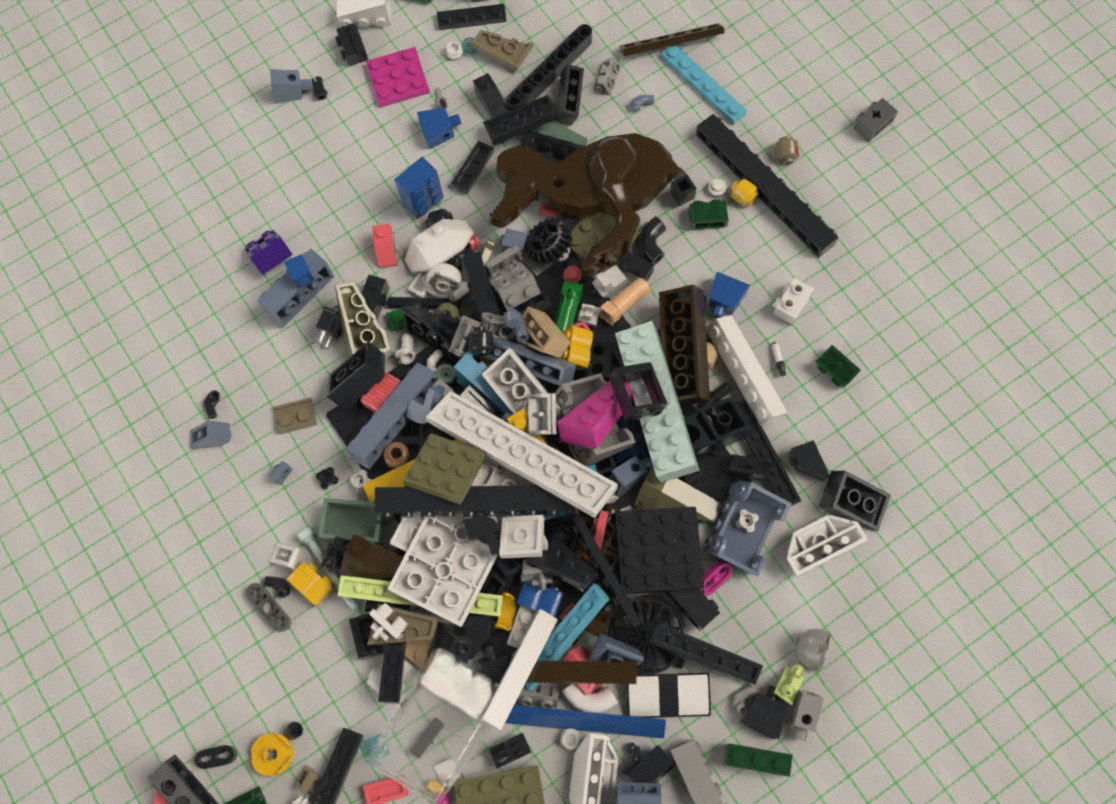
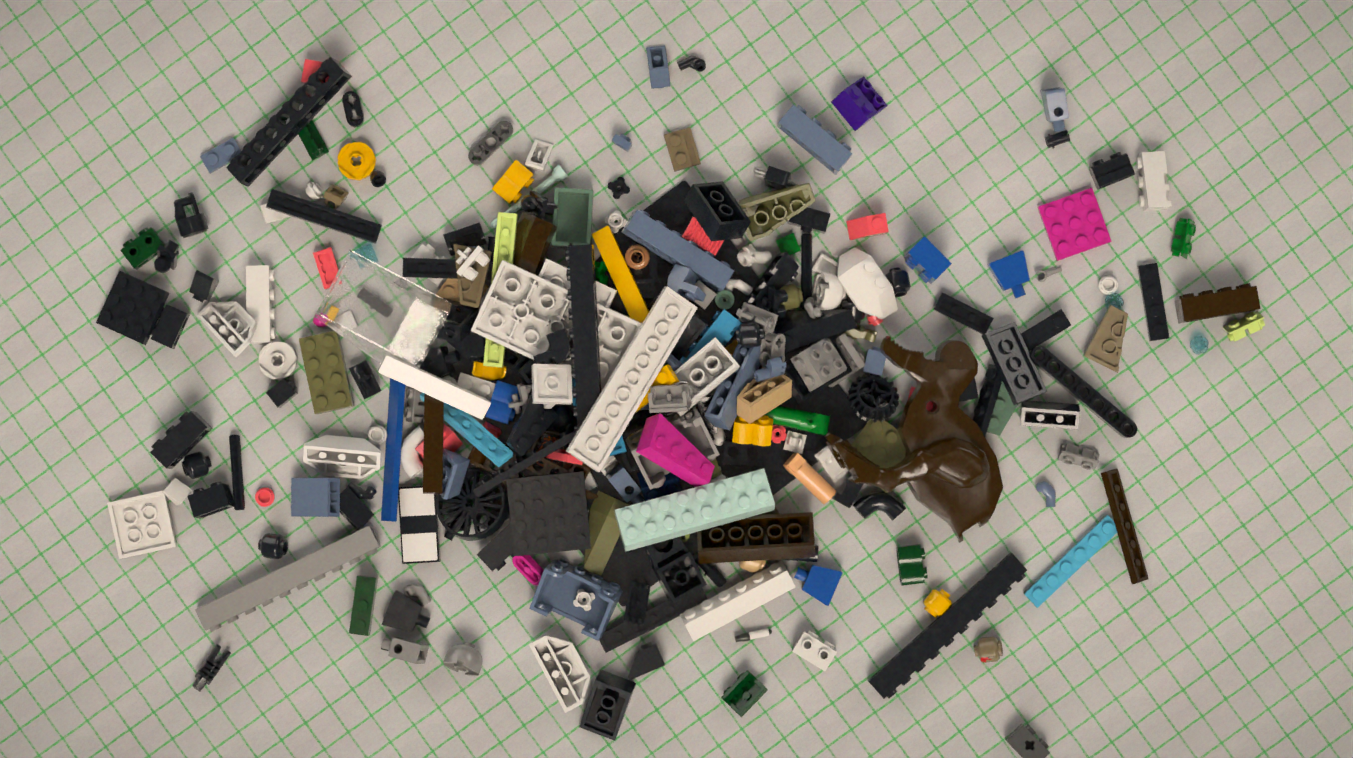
camera: 80 degrees right, 15 degrees up
(279, 583) = (512, 152): black arm -> none
(299, 271) = (822, 146): blue brick -> none
(445, 468) = (612, 309): olive plate -> none
(572, 274) = (838, 424): coral plate -> none
(632, 373) = (700, 505): black window -> none
(683, 190) = (936, 538): black brick -> none
(704, 652) = (455, 557): black plate -> none
(717, 187) = (944, 575): white plate -> none
(790, 683) = (432, 636): yellowish green hinge -> none

